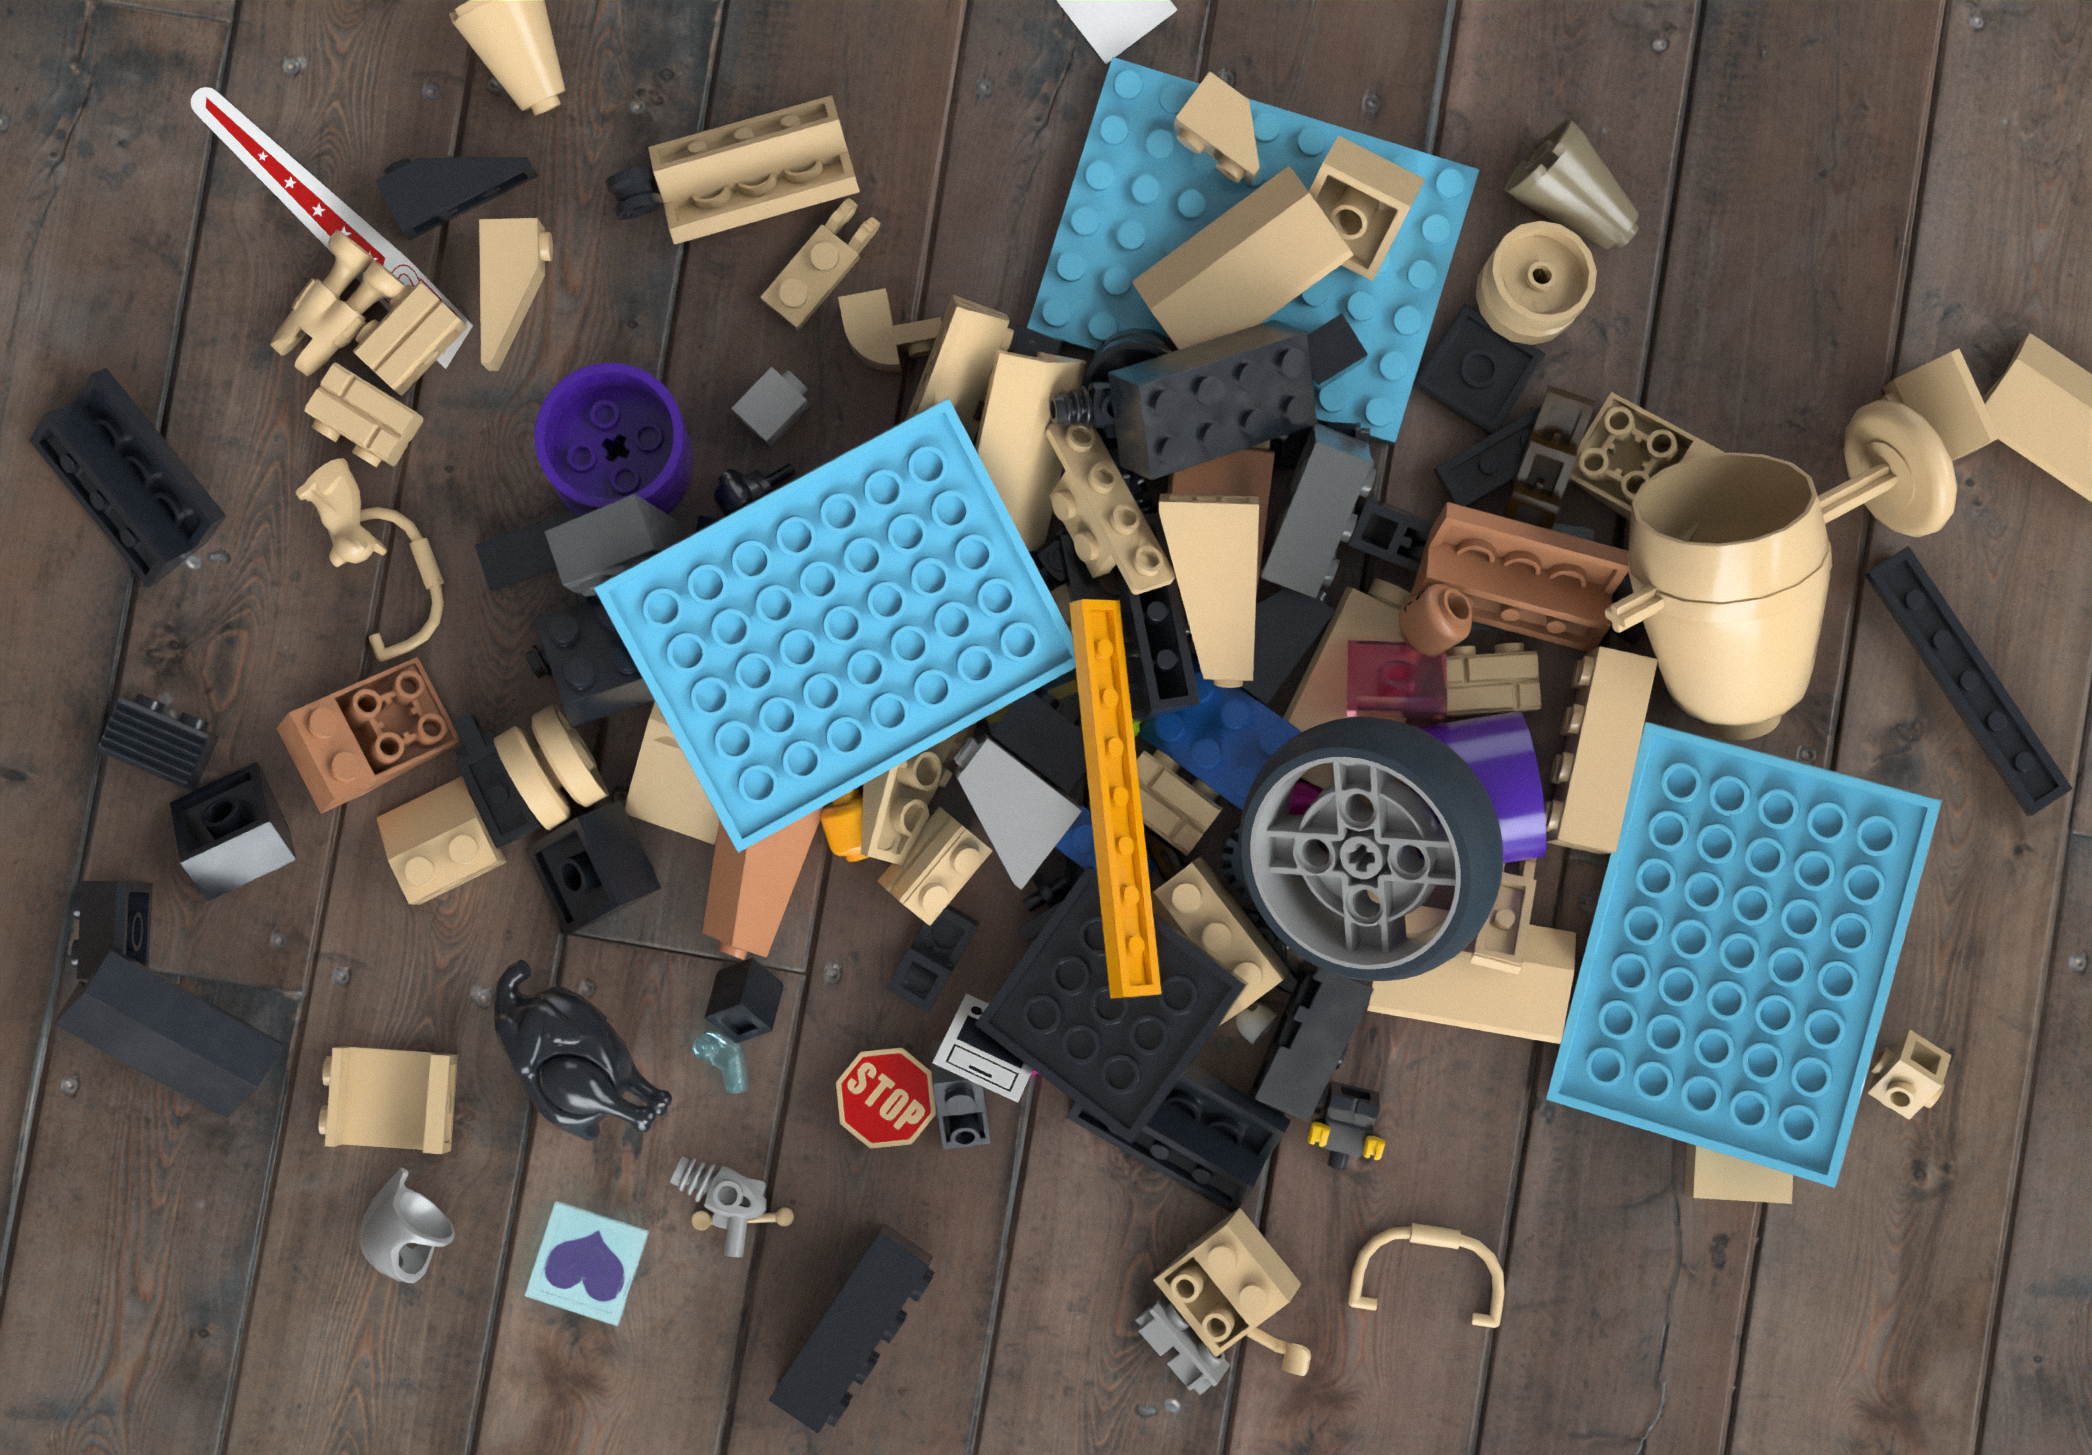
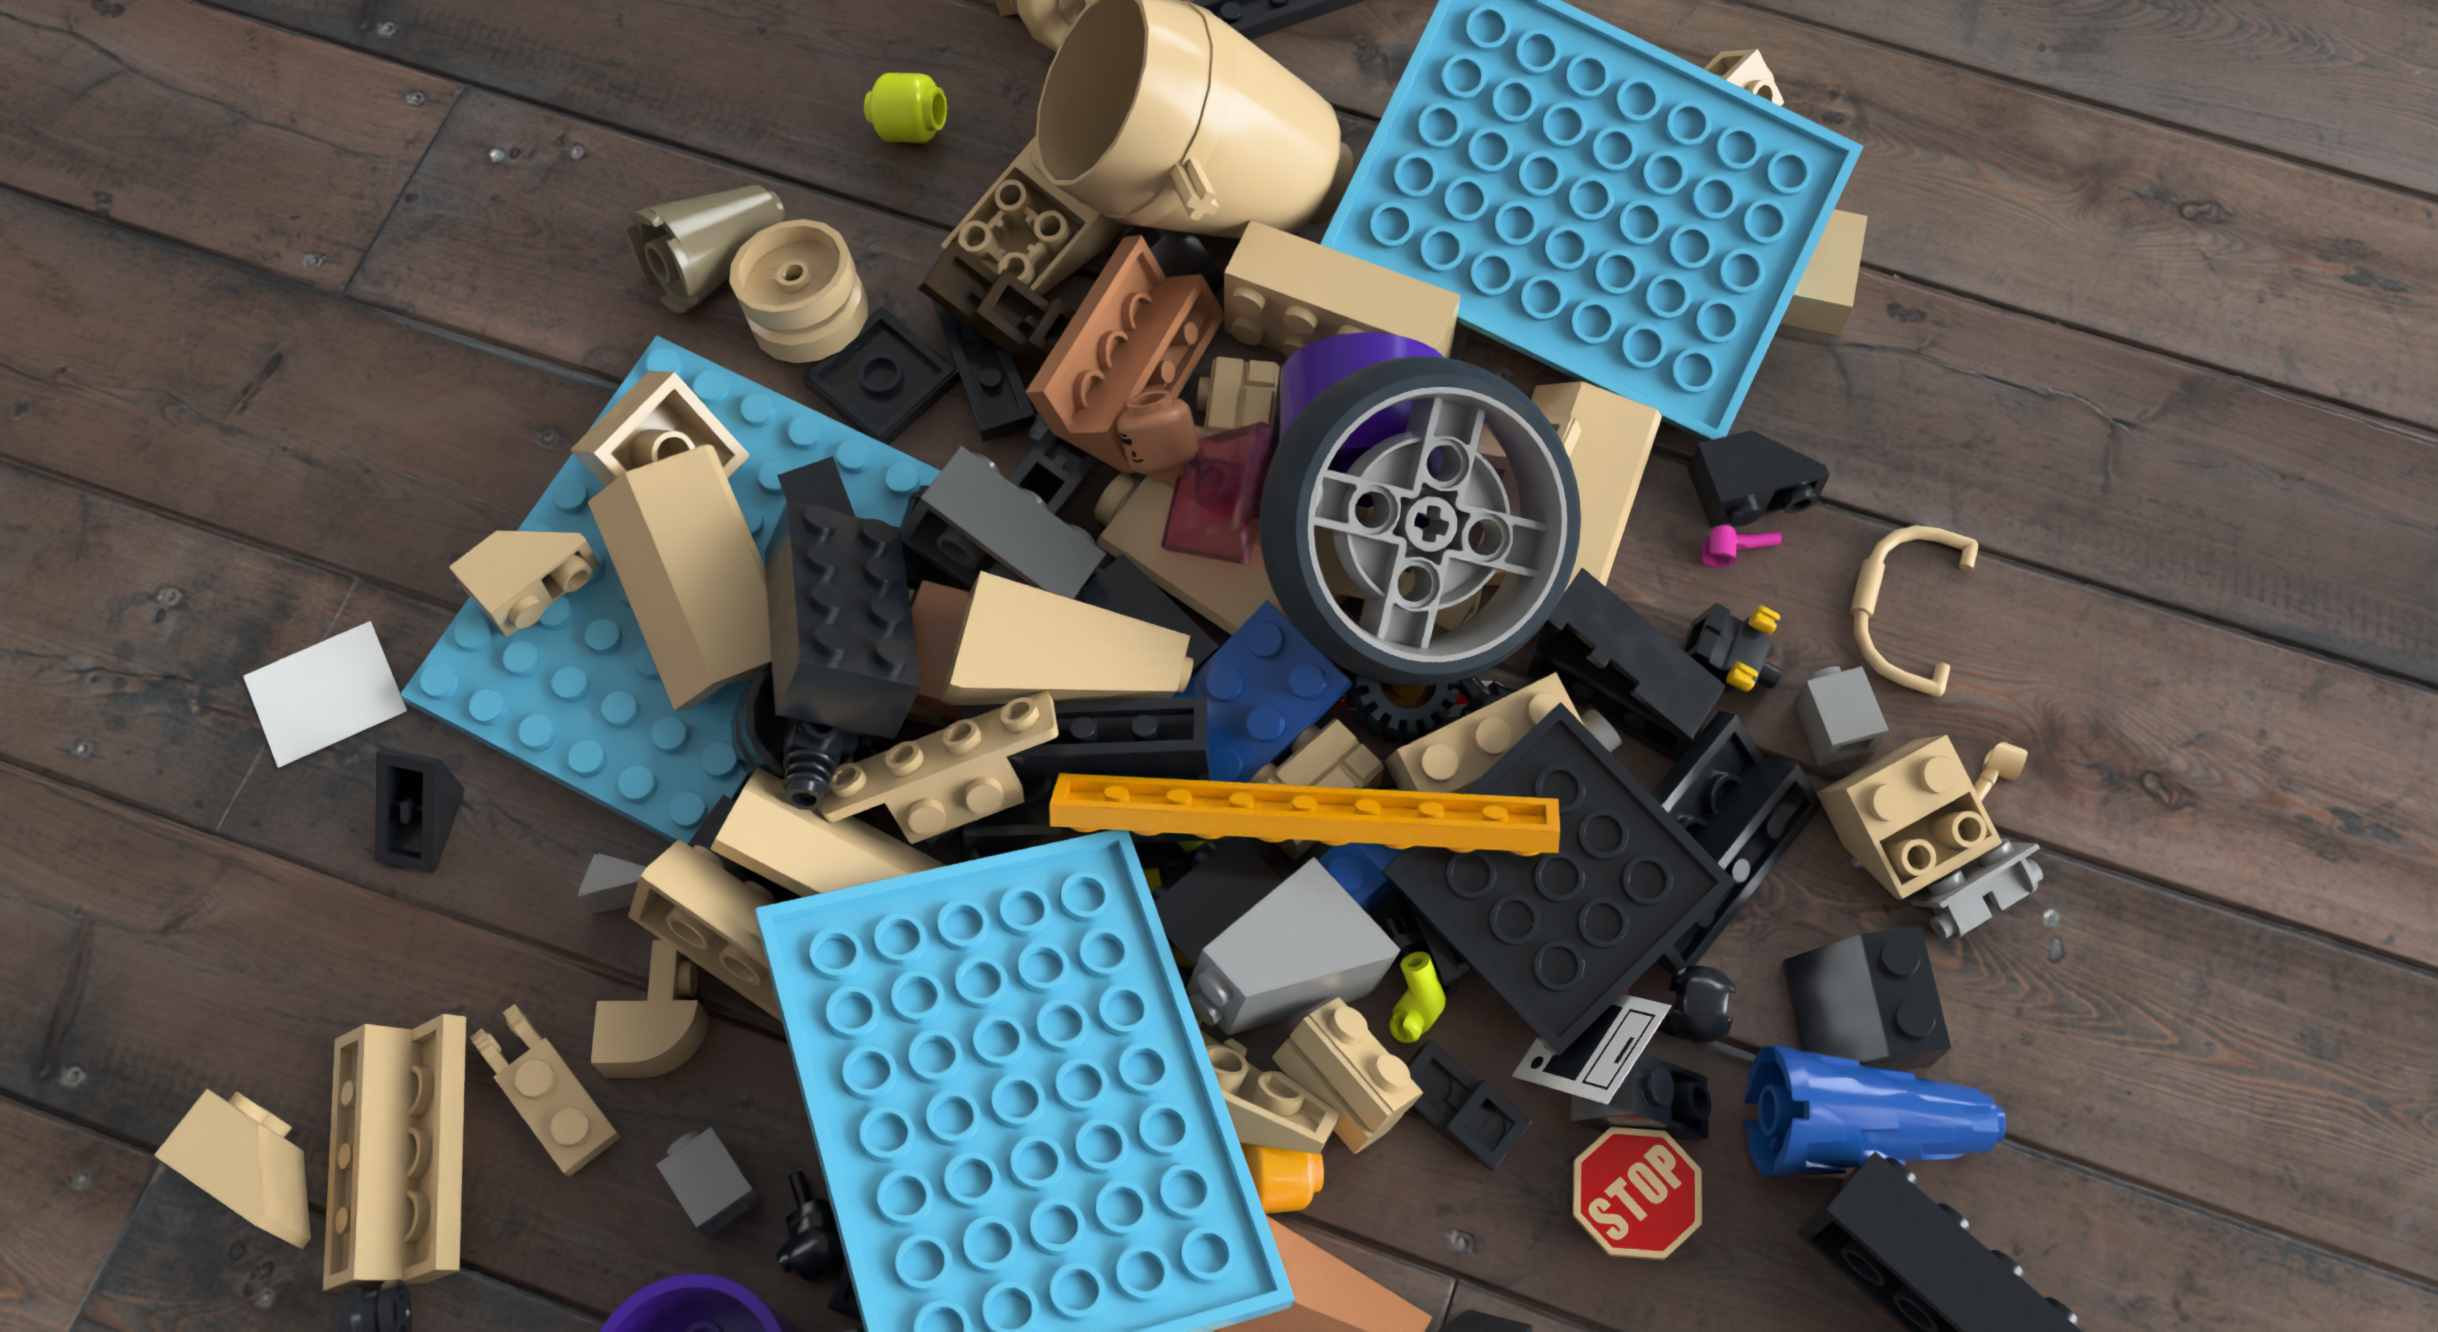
camera: 85 degrees left, 20 degrees down
(716, 68) = (244, 1162): none -> tan slope
(969, 1243) = (1833, 1114): none -> blue cone
(987, 271) = (609, 883): none -> light grey slope
(1003, 913) = (1421, 1001): none -> neon yellow arm
(1014, 100) = (413, 808): none -> black slope
(1042, 1130) = (1700, 1004): none -> black piece
(1064, 1259) = (1869, 1000): none -> black slope
(1310, 1219) = (1840, 714): none -> light grey brick
(1451, 1108) = (1721, 546): none -> dark pink hand
(1517, 1126) = (1751, 477): none -> black slope
(1751, 327) = (906, 107): none -> neon yellow head

